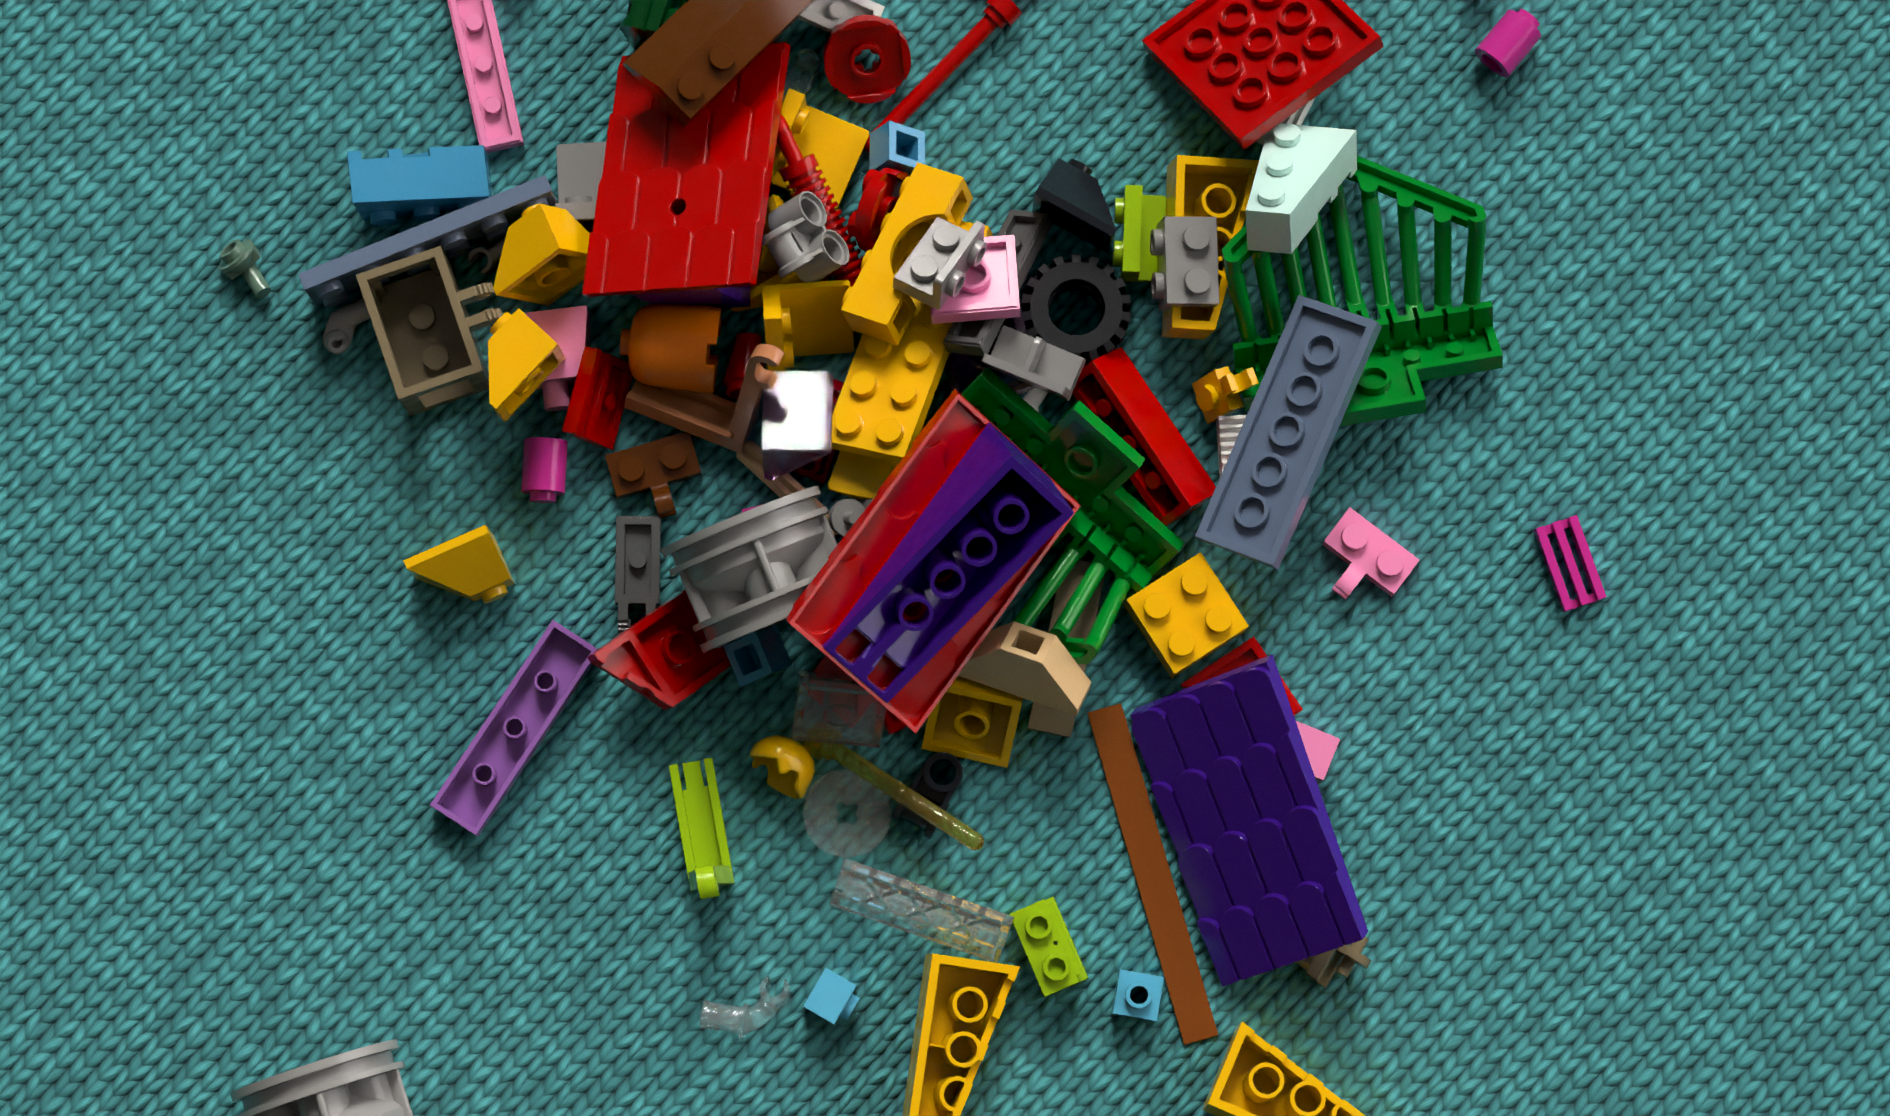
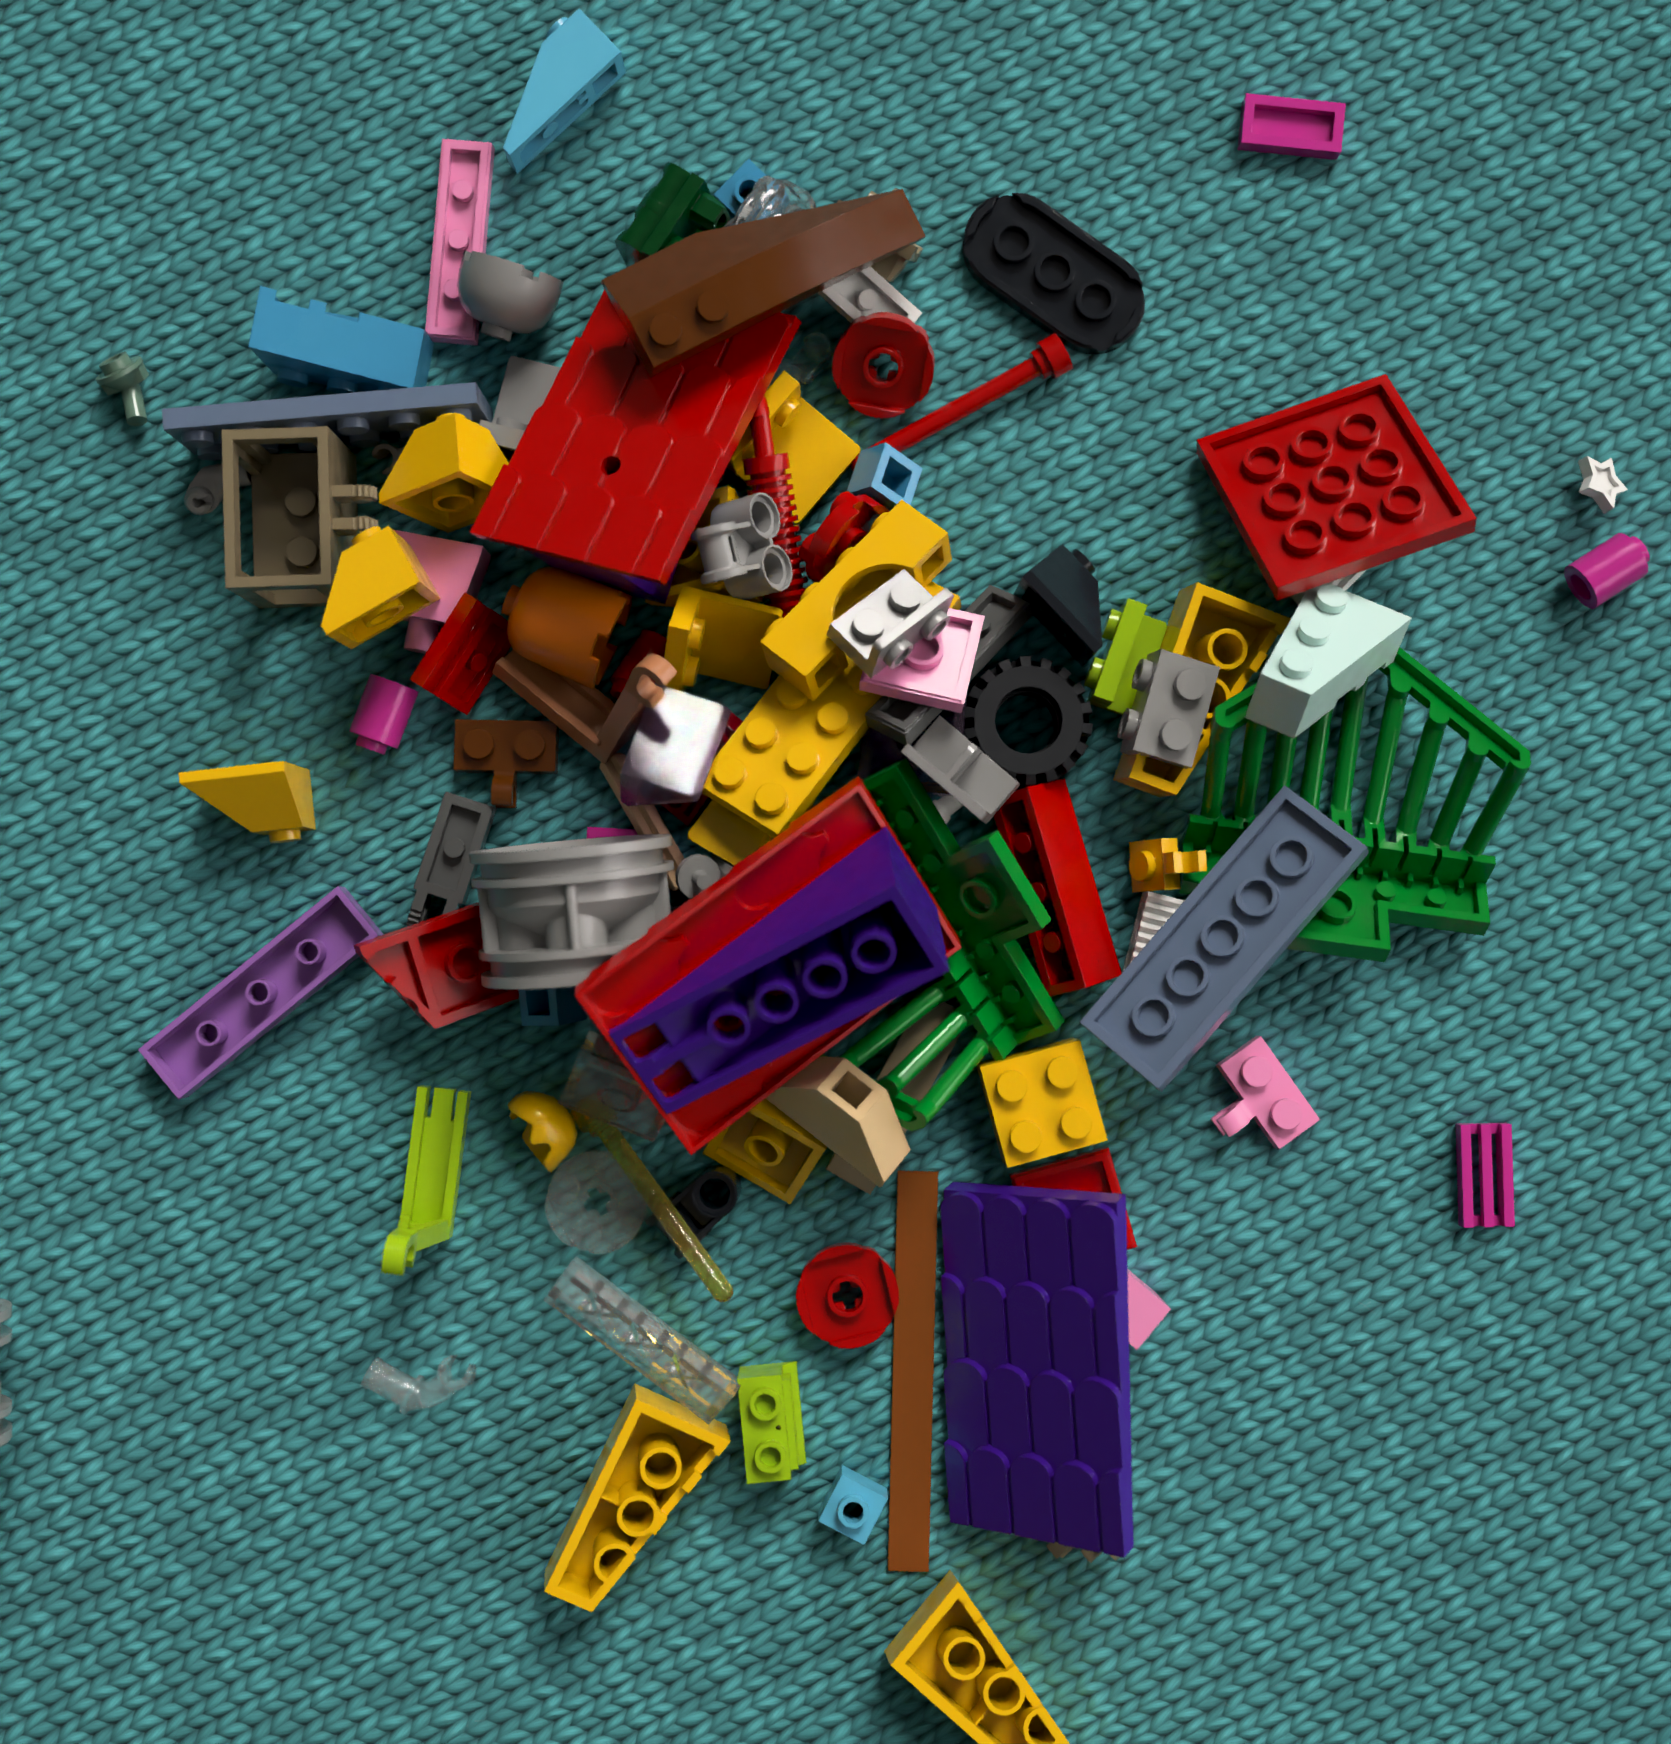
camera: 20 degrees right, 5 degrees up
(540, 97) = (505, 295): none -> light grey cylinder
(832, 997) = (515, 1401): medium azure plate -> none
(1084, 800) = (831, 1319): none -> red plate

